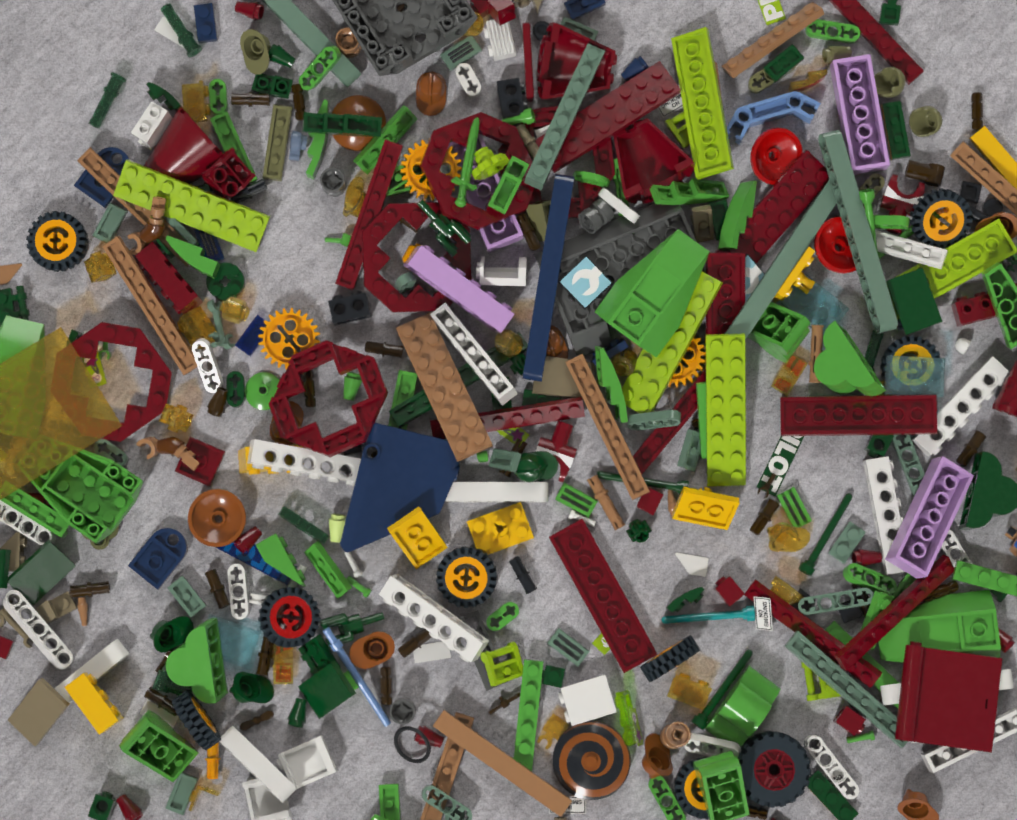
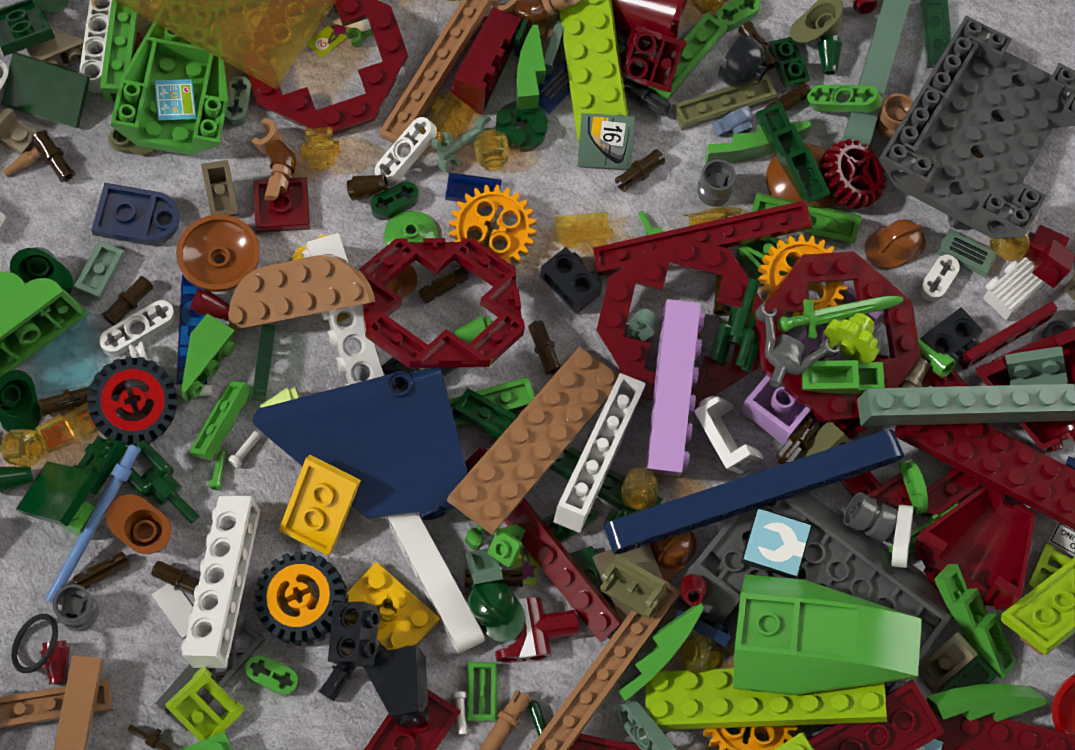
camera: 50 degrees right, 15 degrees down
(93, 493) = (175, 99): none -> sticker
(172, 495) = (219, 188): none -> dark tan slope
(262, 116) = (744, 63): none -> black cylinder
(267, 235) = (606, 141): none -> slope
(276, 482) = (297, 290): none -> medium nougat plate
(284, 697) = (22, 447): none -> clear yellow head
(297, 224) = (639, 170): none -> dark brown pin
(320, 283) = (582, 227): none -> clear yellow bracket
(371, 98) = (852, 174): none -> dark red gear
(478, 211) = (787, 351): none -> dark grey piece
(501, 441) = (506, 544): none -> bright green bracket
(506, 560) = (354, 634): none -> black brick
(550, 545) = (402, 684): none -> black slope
(562, 61) = (1037, 367): none -> sand green bracket
(566, 380) = (633, 586): none -> olive hinge
(586, 347) = (689, 584): none -> dark red cone

